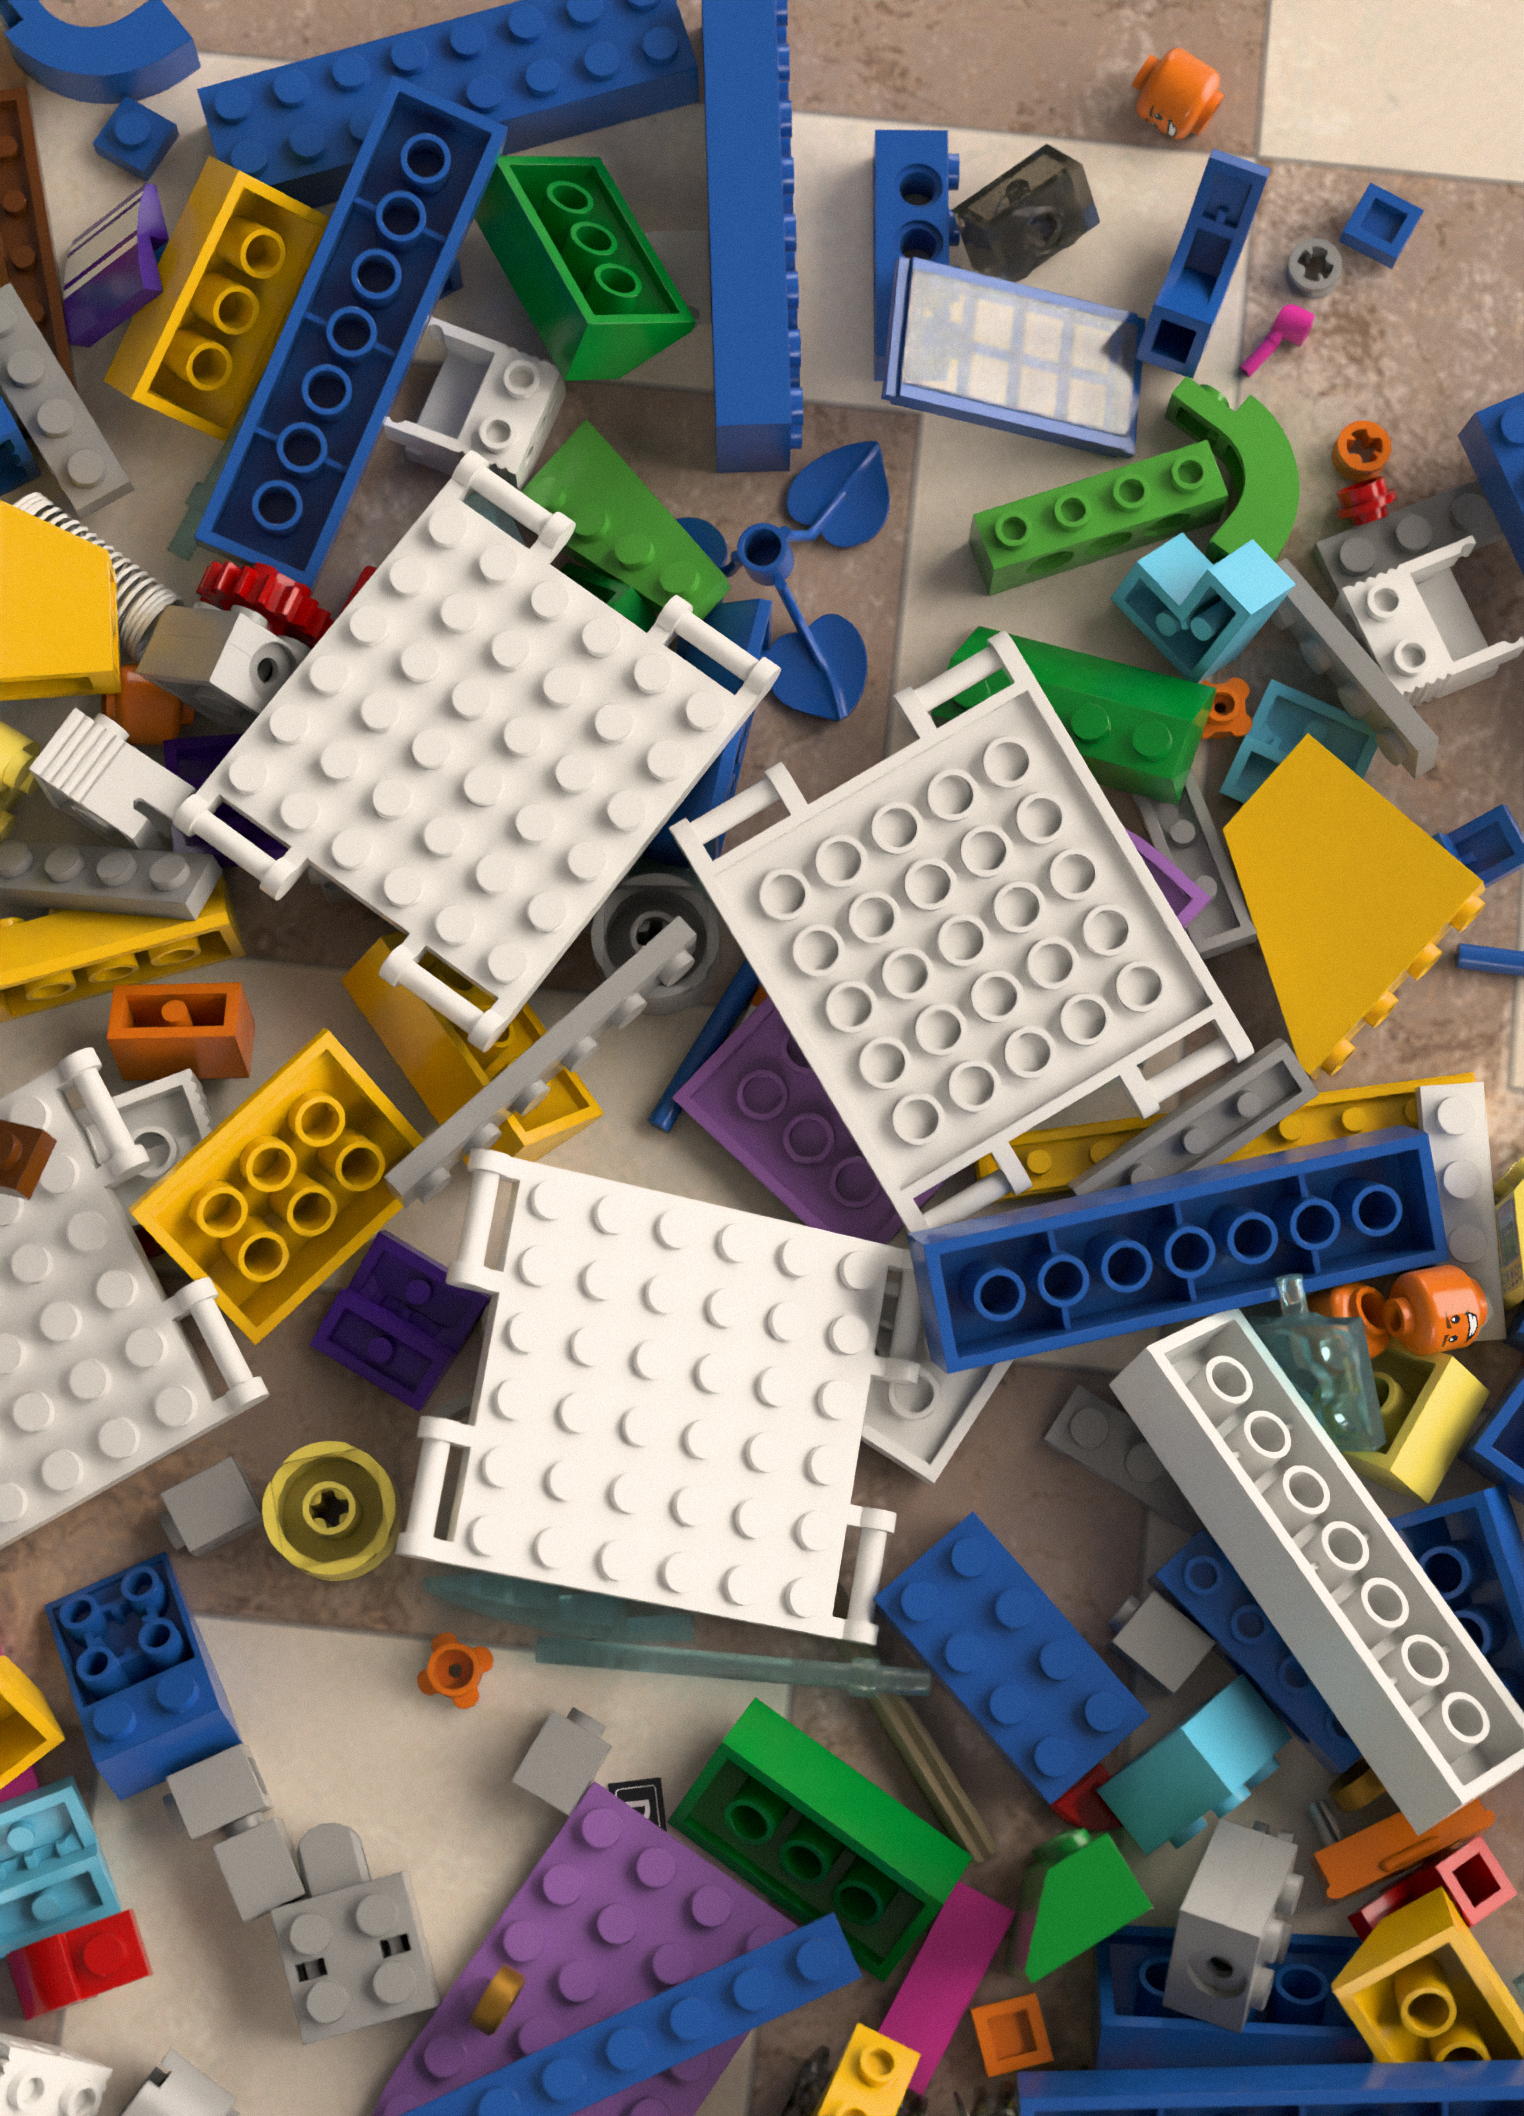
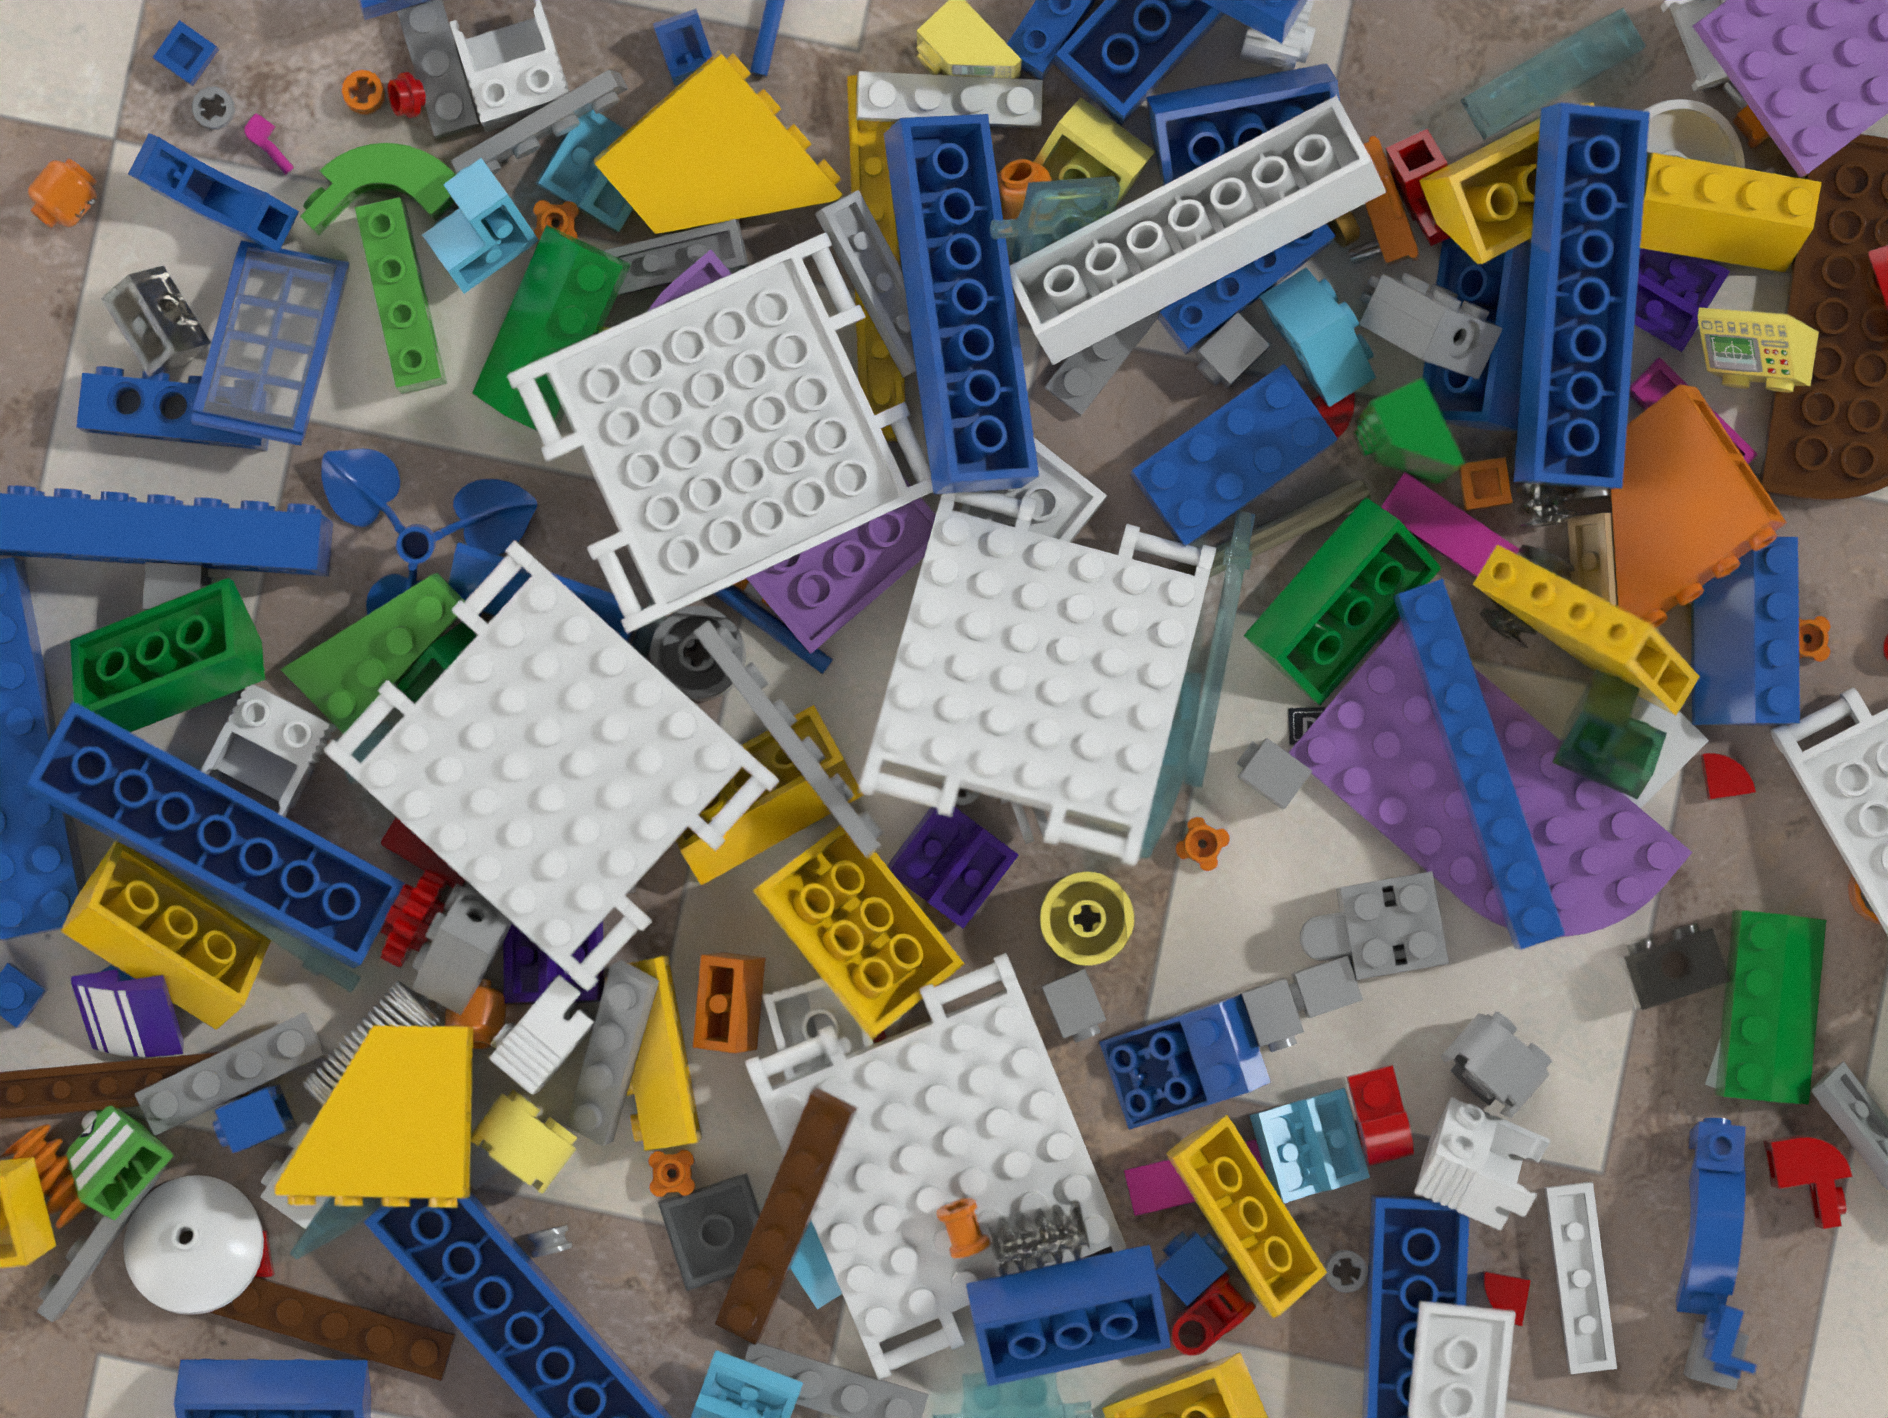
camera: 80 degrees left, 10 degrees up
(497, 2000) = (1431, 829): pearl gold tile -> none
(1435, 1310) = (1022, 129): orange head -> none

